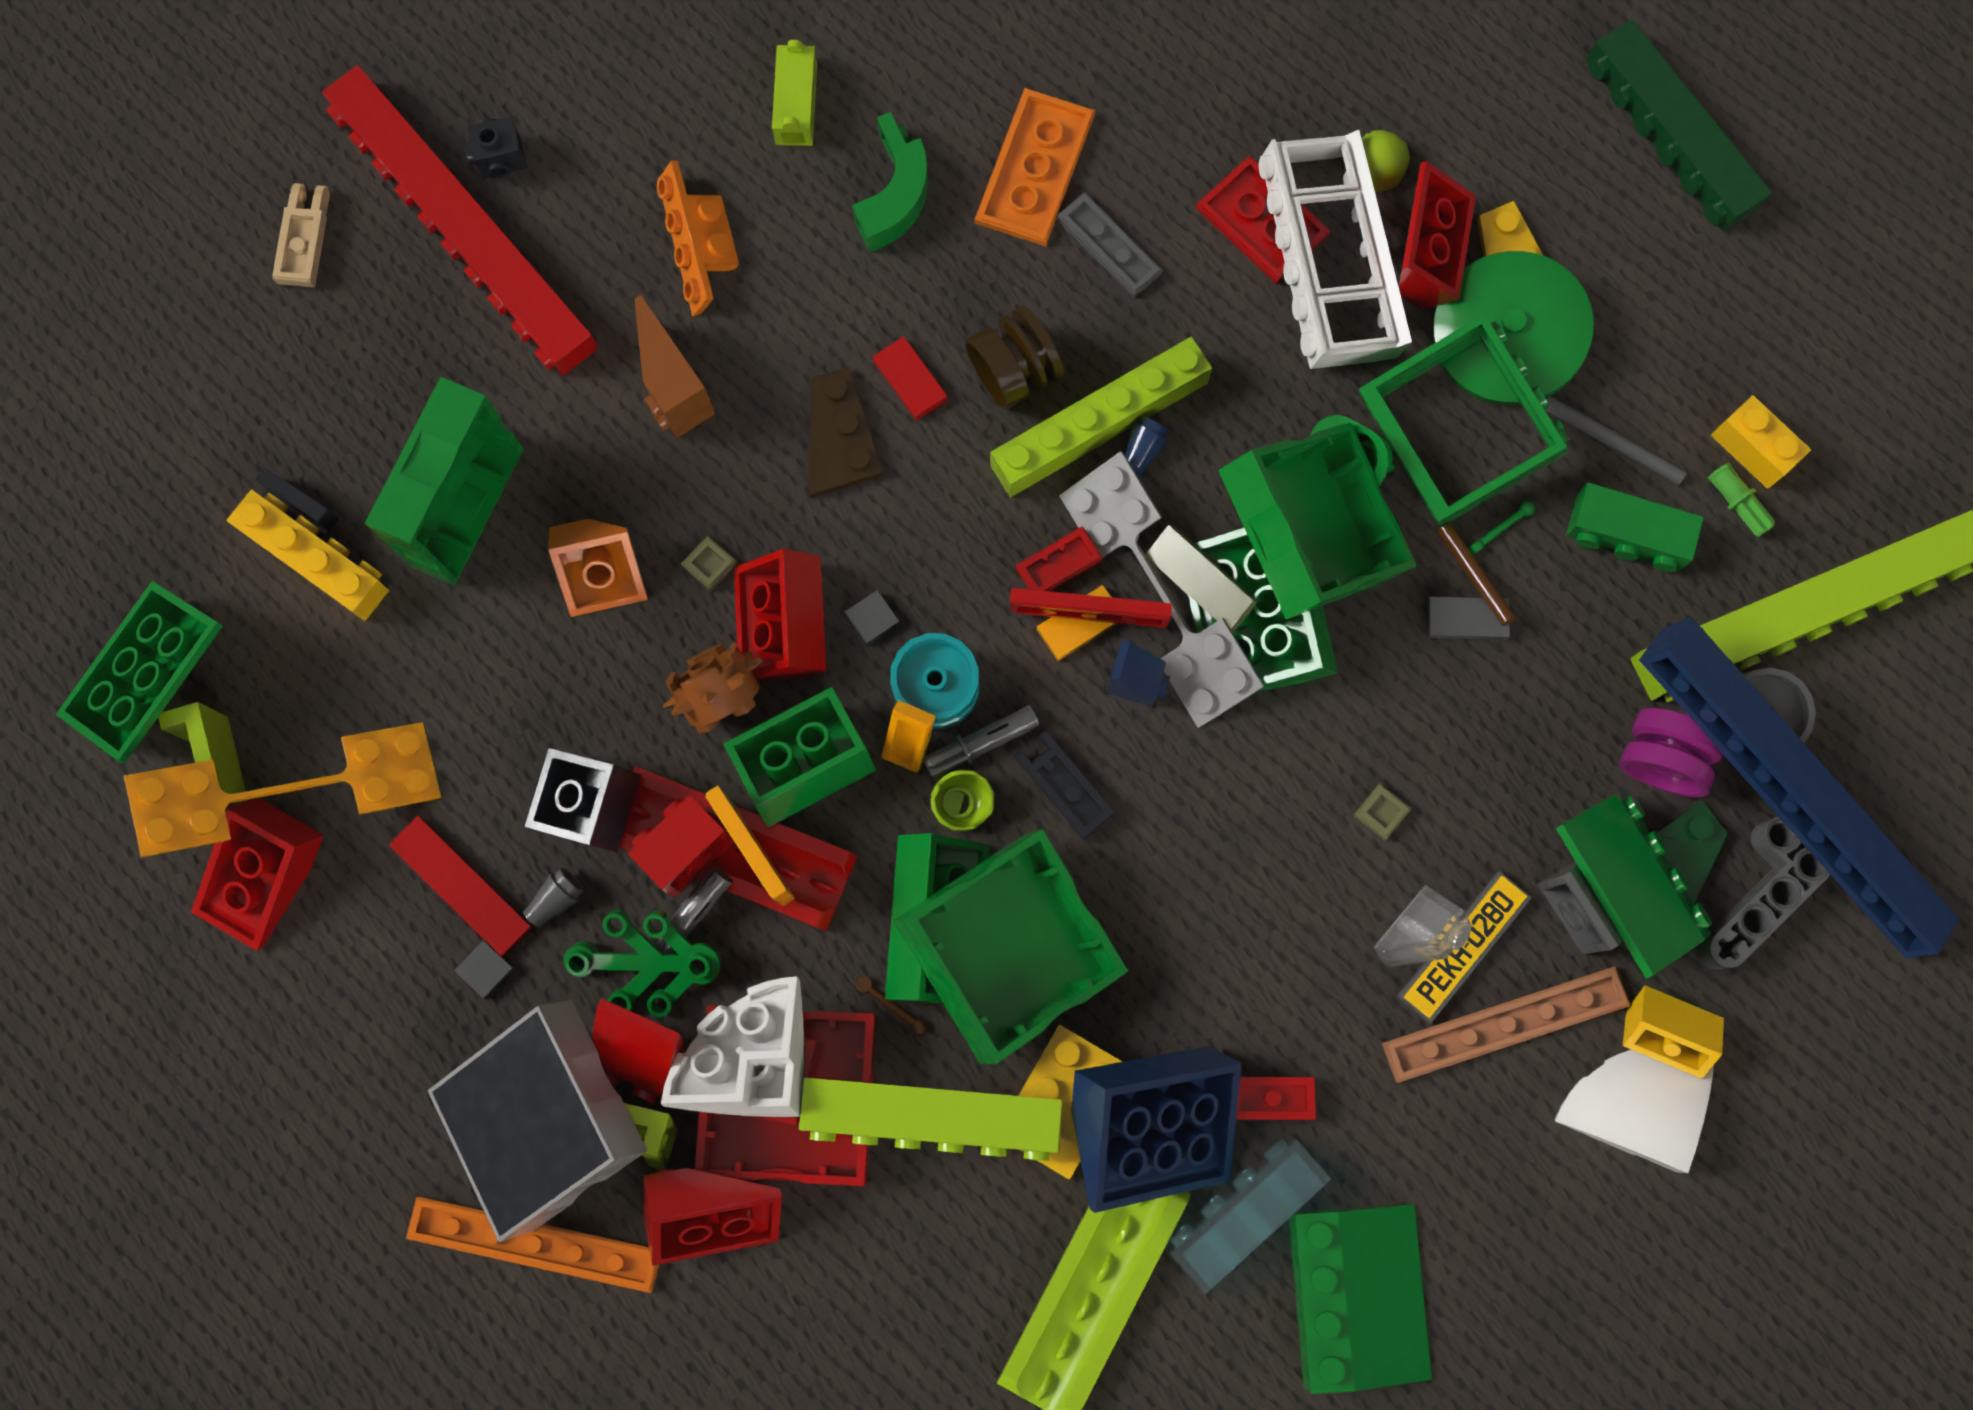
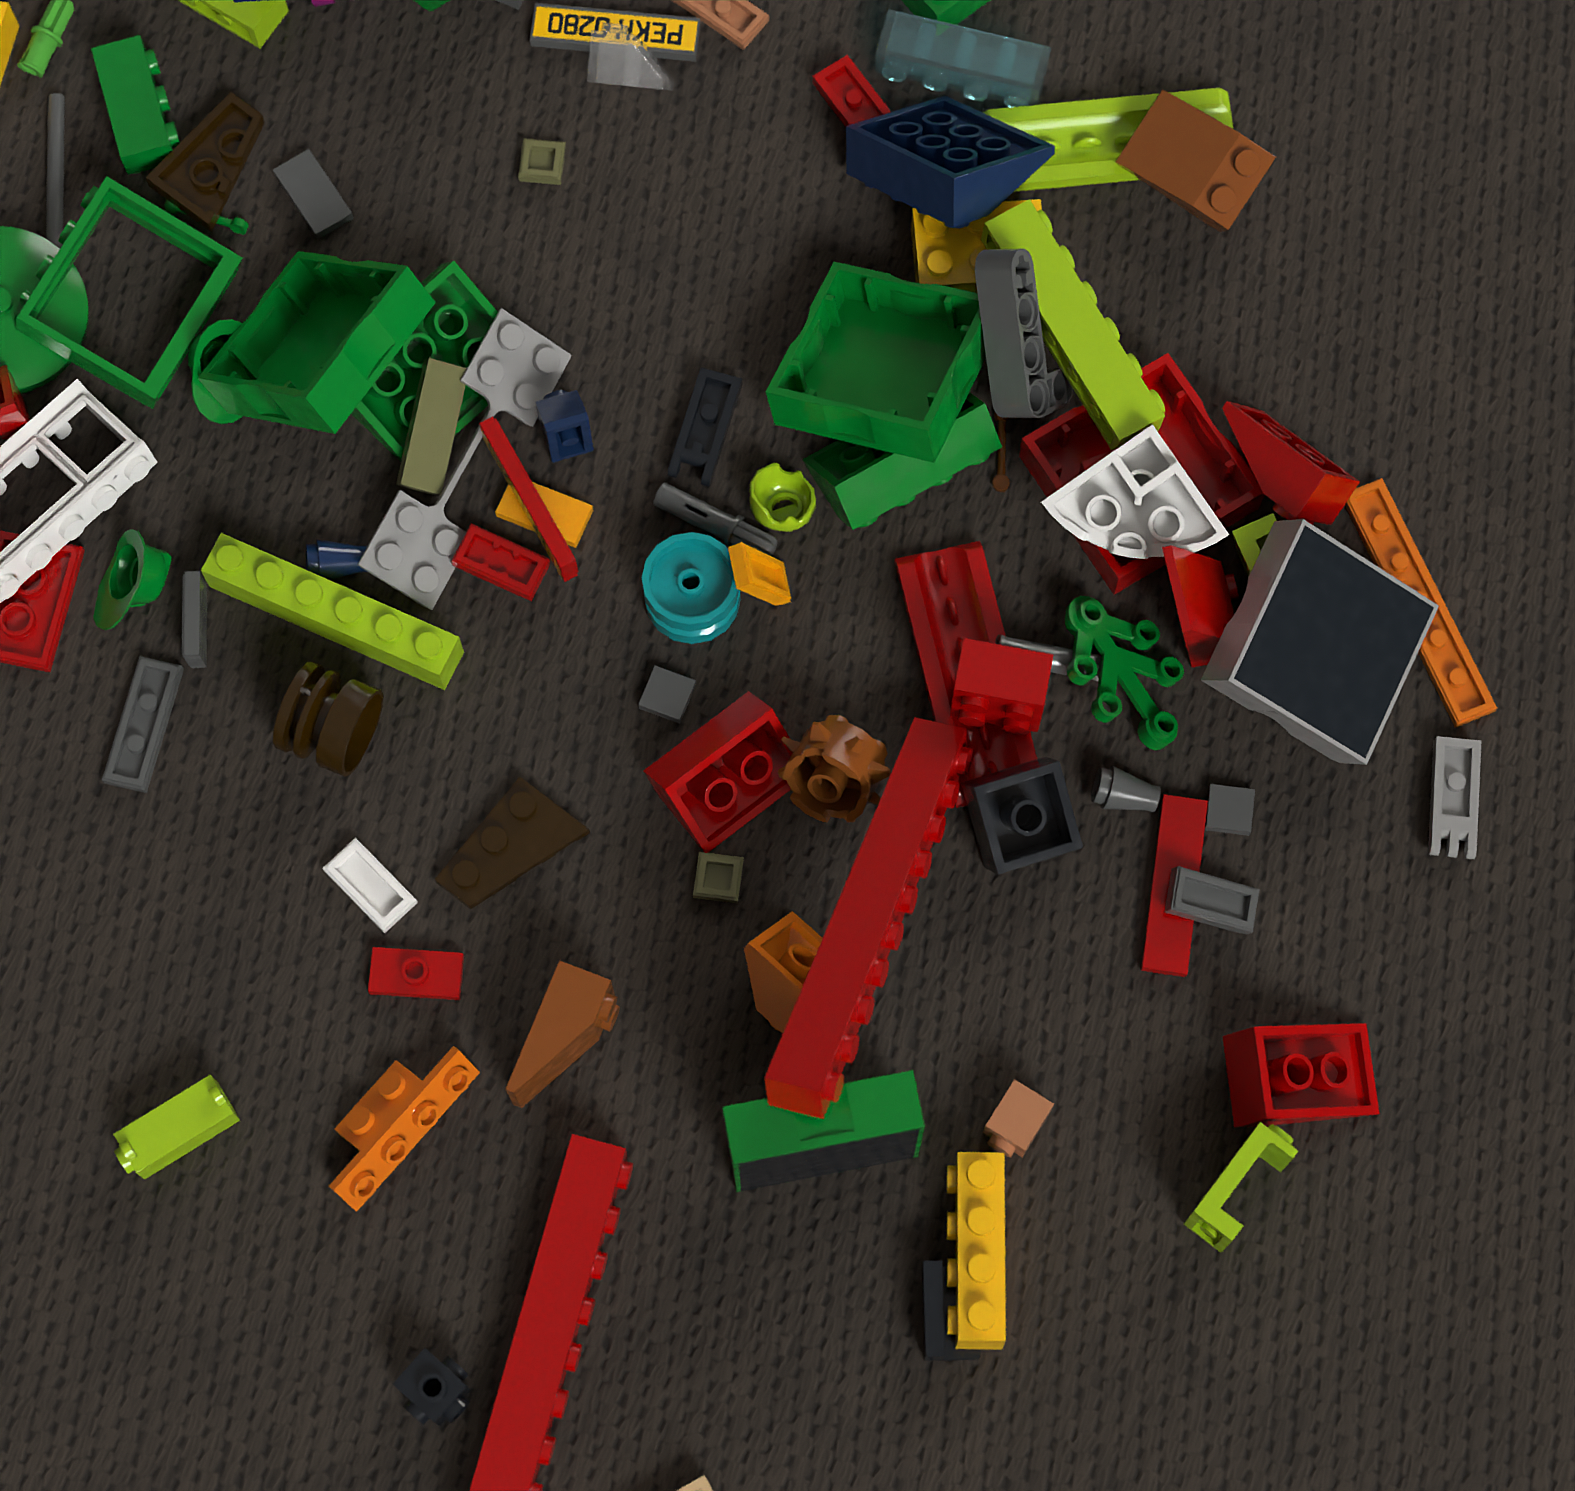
camera: 125 degrees left, 5 degrees down
(138, 671) = (1204, 1299): green slope -> none
(187, 807) = (1293, 1136): light orange hinge -> none
(364, 1149) = (1454, 795): none -> light grey hinge
(377, 647) = (1017, 1120): none -> nougat brick
(425, 901) = (1211, 900): none -> dark grey tile
(561, 608) = (868, 920): none -> red brick
(749, 846) = (958, 627): light orange tile -> none
(791, 315) = (416, 973): none -> red plate
(799, 757) = (844, 654): green brick -> none
(878, 324) = (370, 885): none -> white tile
(897, 207) = (212, 945): green arch -> none
(909, 378) = (406, 818): red tile -> none
(929, 1049) = (1014, 338): none -> dark grey beam
(1016, 1340) = (1195, 160): none -> dark orange slope
(1035, 167) = (102, 847): orange tile -> none
(1160, 318) = (194, 619): none -> dark grey tile
(1223, 295) = (131, 579): none -> green piece
(1476, 574) = (269, 205): reddish brown bar -> none
(1546, 553) = (208, 161): none -> dark brown wing

